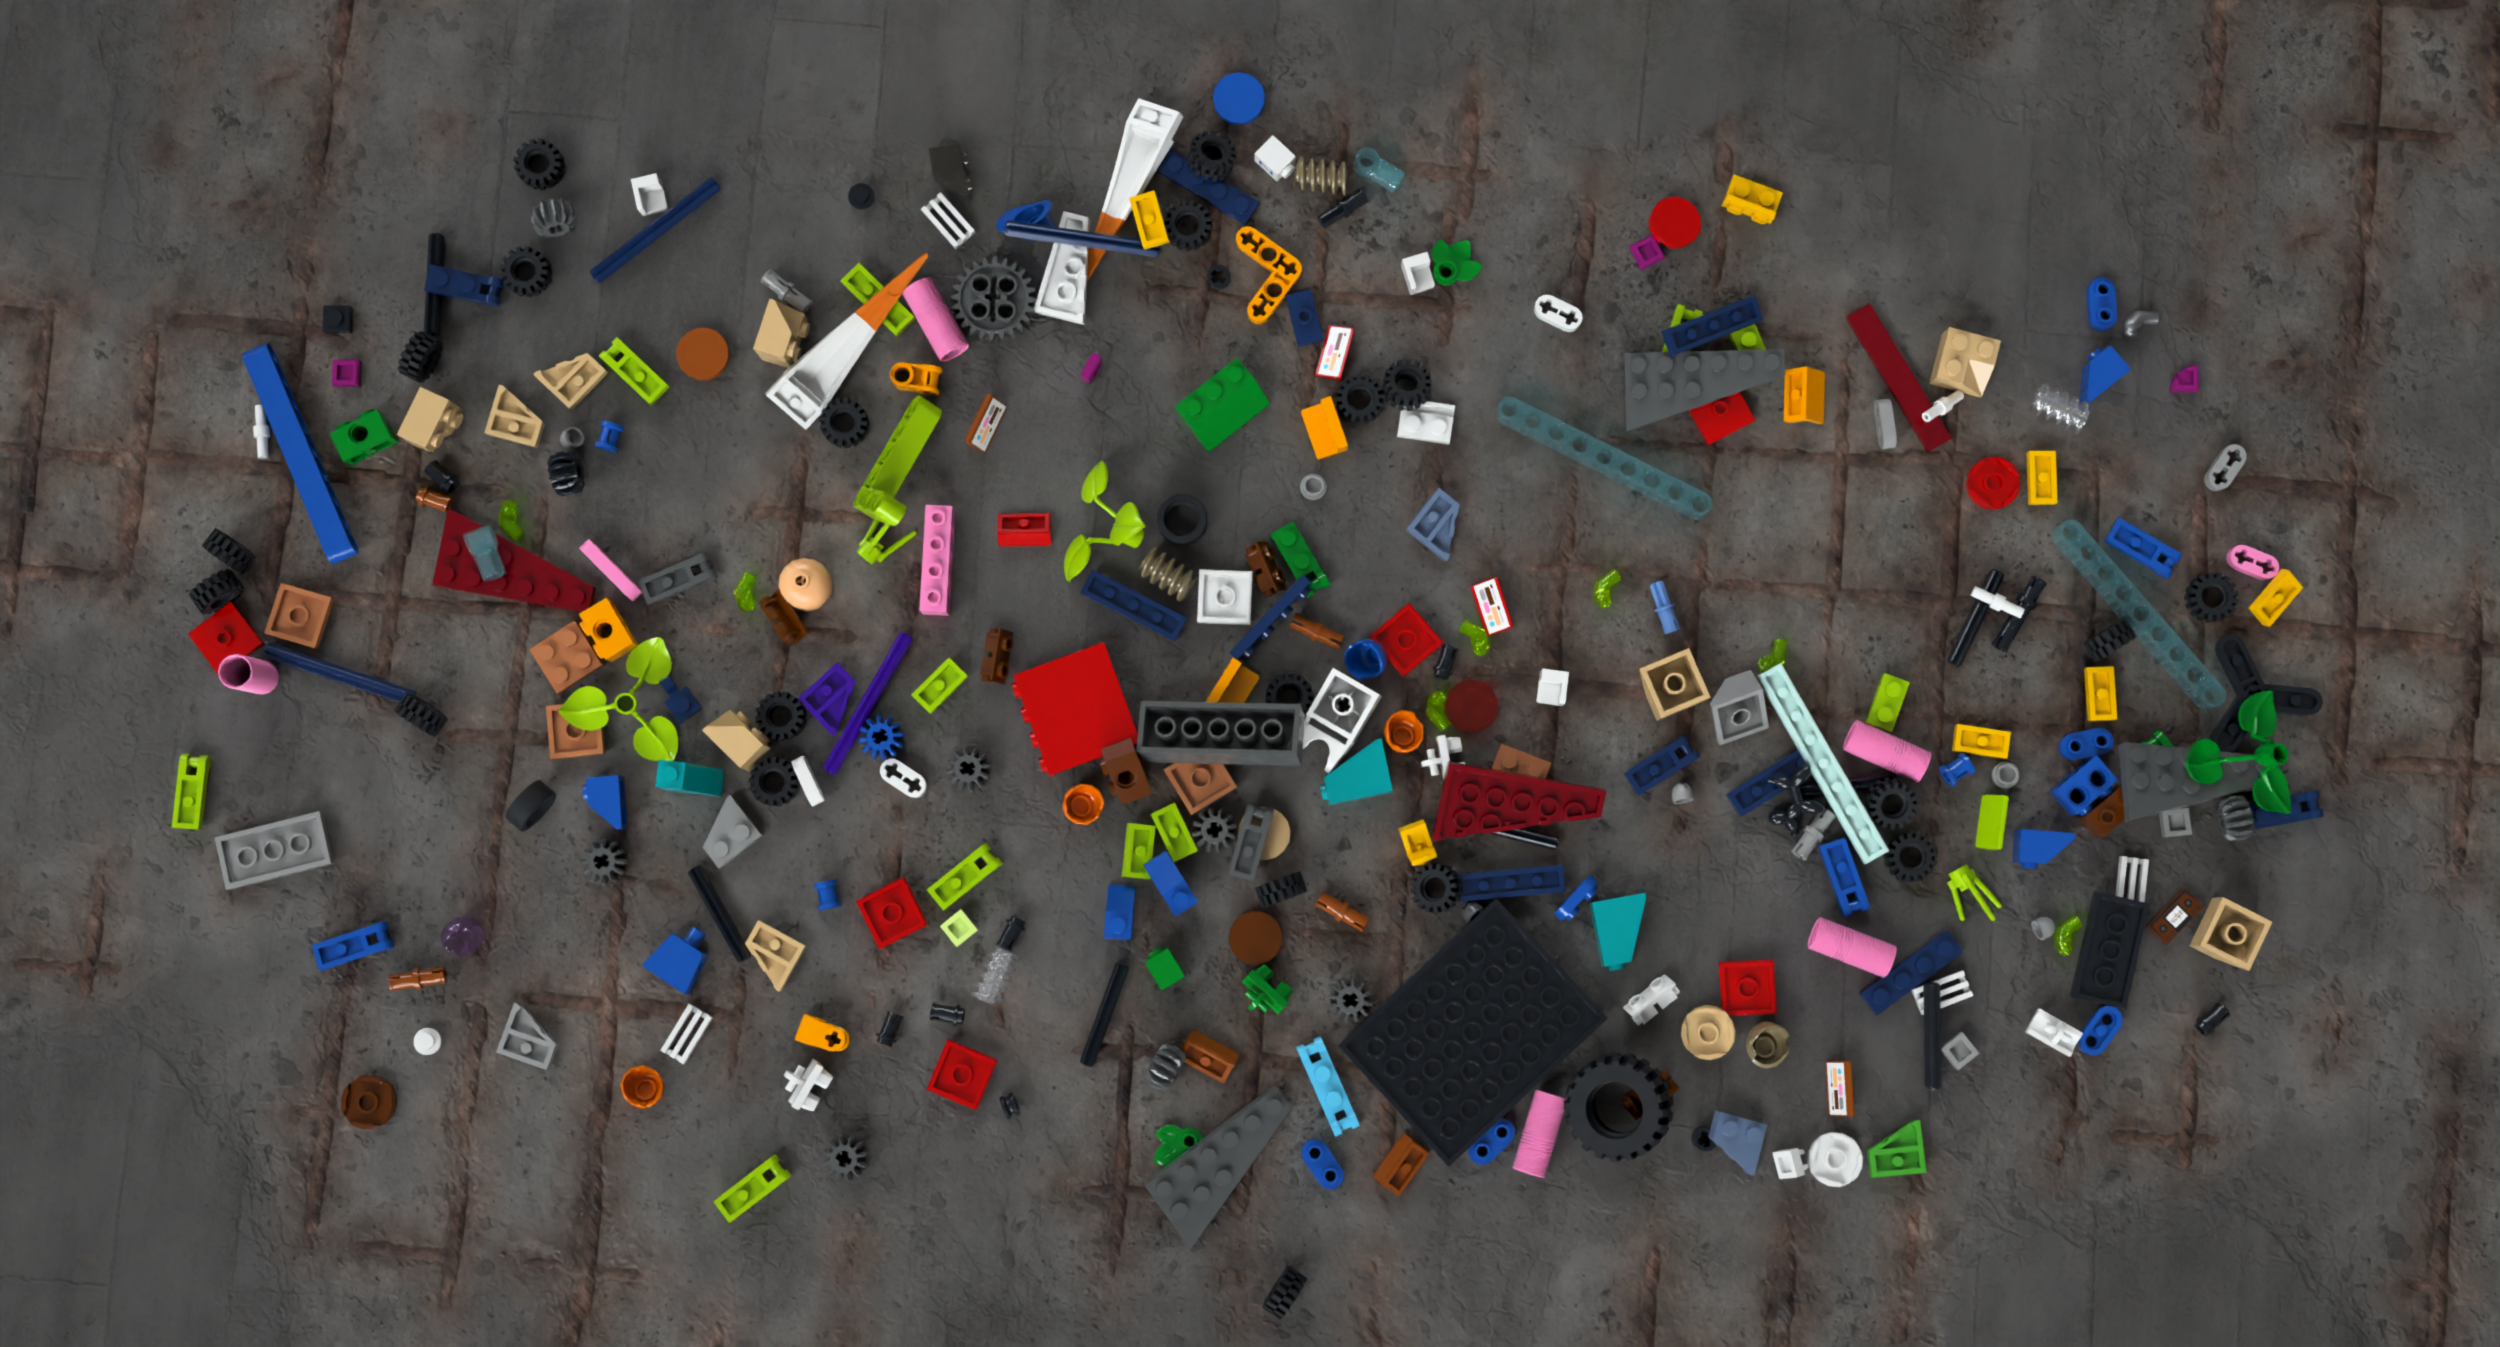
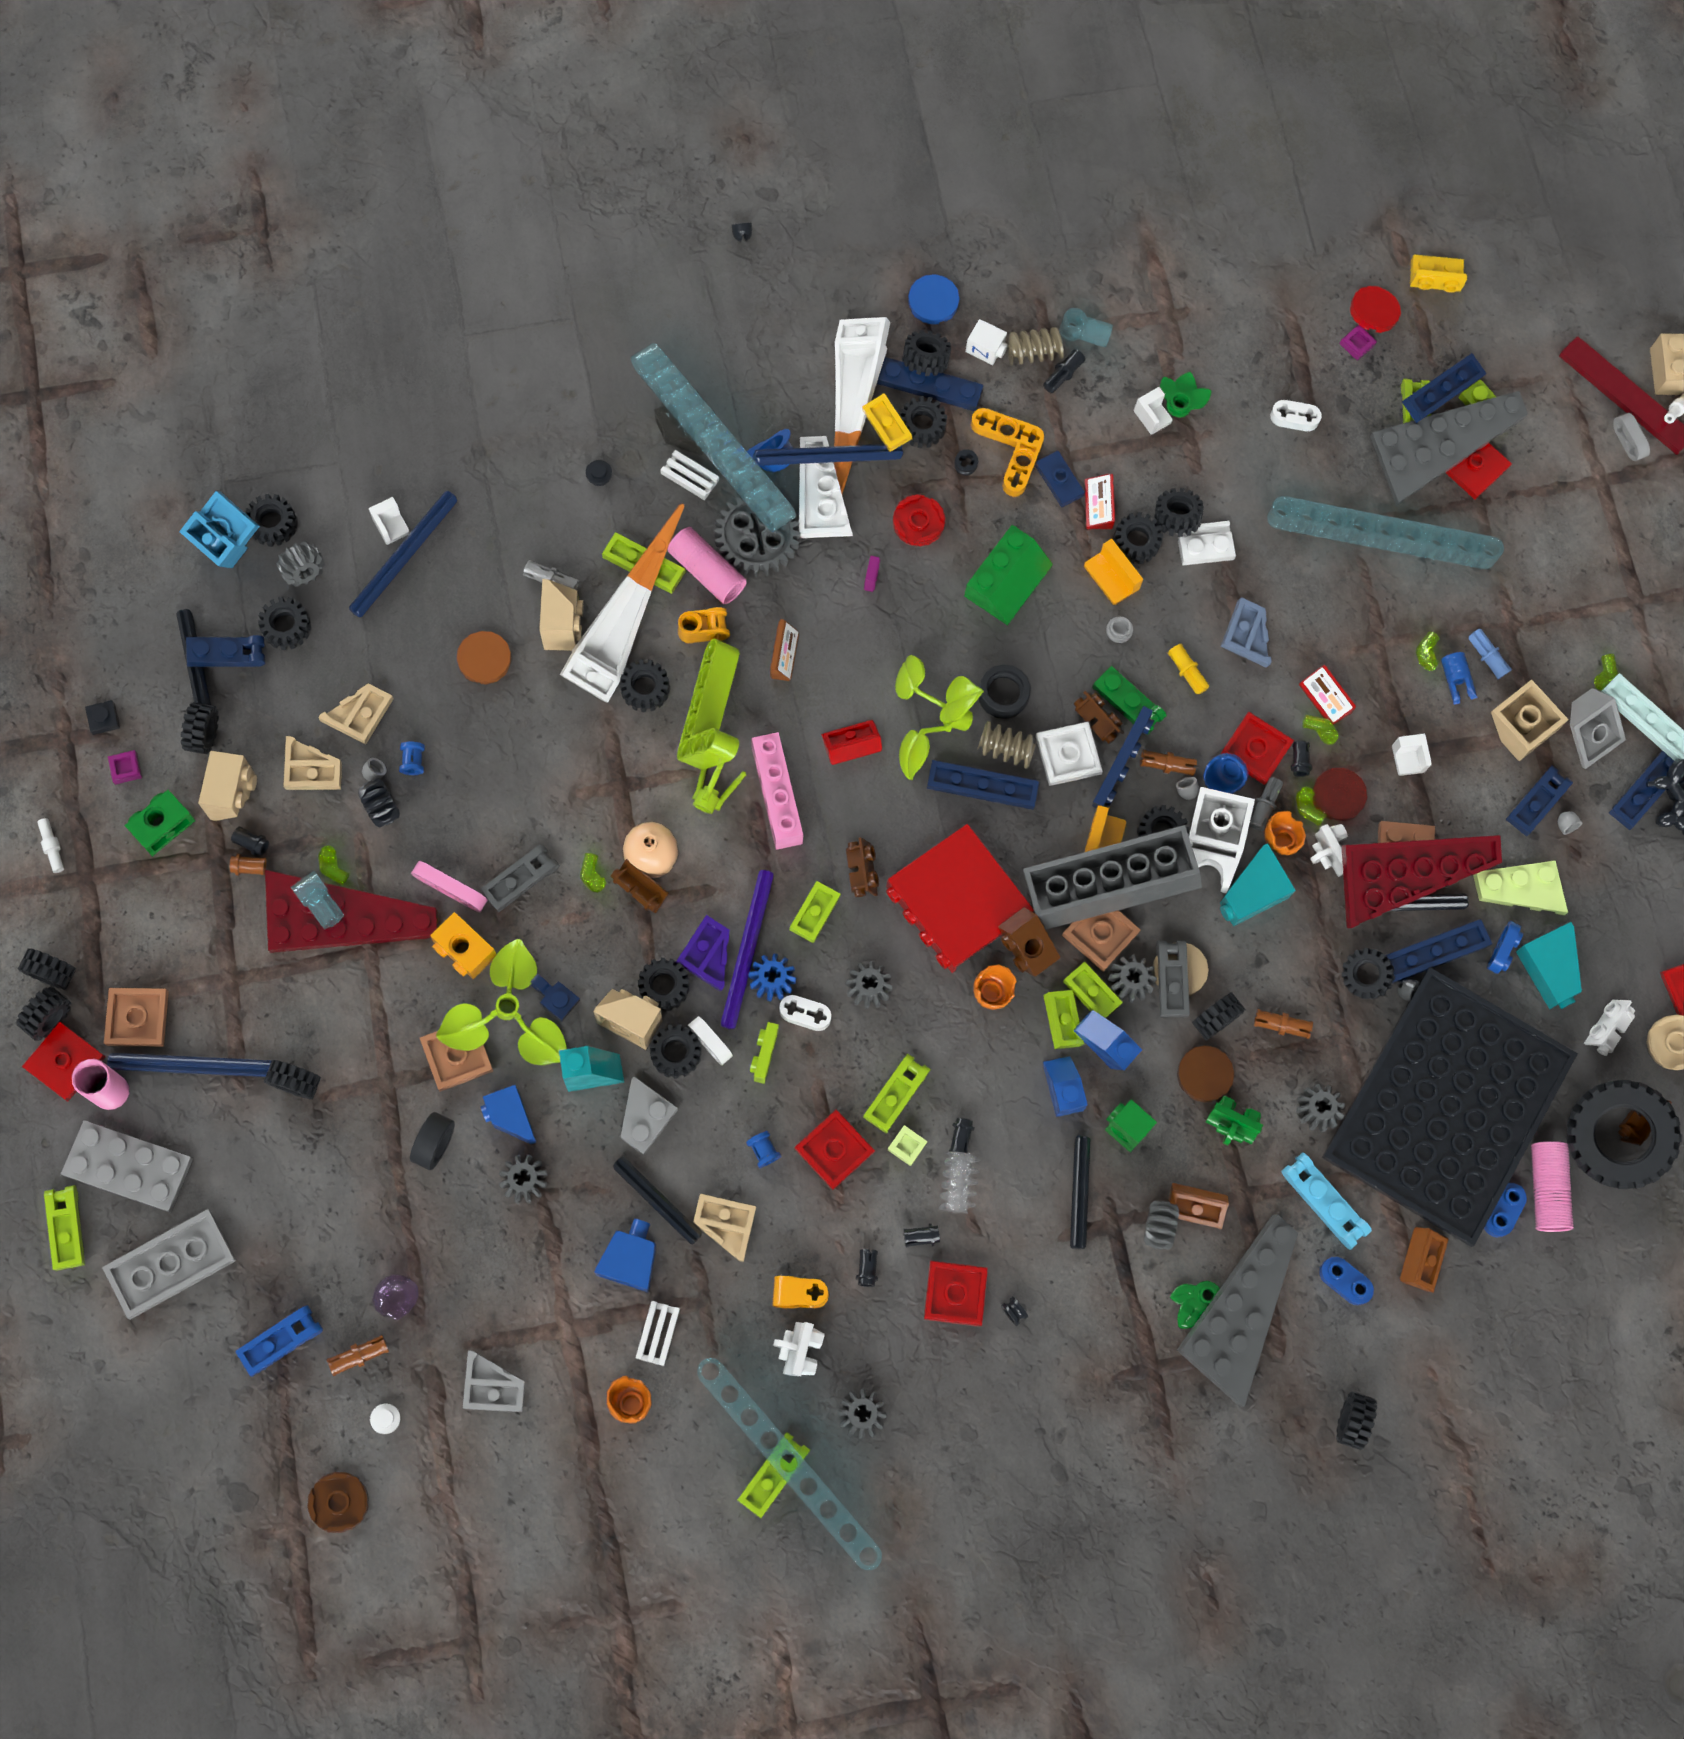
camera: 25 degrees left, 10 degrees down
(259, 751) = (127, 1166): none -> light grey plate
(300, 453) = (97, 856): blue beam -> none
(486, 166) = (220, 530): none -> dark azure brick
(566, 657) = (426, 986): nougat plate -> none
(634, 372) = (420, 690): lime plate -> none
(764, 1198) = (801, 1471): none -> clear light blue beam
(860, 795) = (767, 1041): none -> lime plate
(974, 193) = (713, 437): none -> clear light blue beam
(1154, 324) = (918, 520): none -> red tile
(1327, 661) = (1188, 788): none -> light grey hinge
(1366, 544) = (1188, 669): none -> yellow axle
(1396, 697) = (1266, 804): none -> dark grey axle
(1417, 843) = (1334, 936): yellow bracket -> none
(1618, 843) = (1523, 885): none -> yellowish green wing
(1625, 617) = (1456, 673): none -> blue hinge
(1804, 395) = (1547, 431): light orange panel -> none

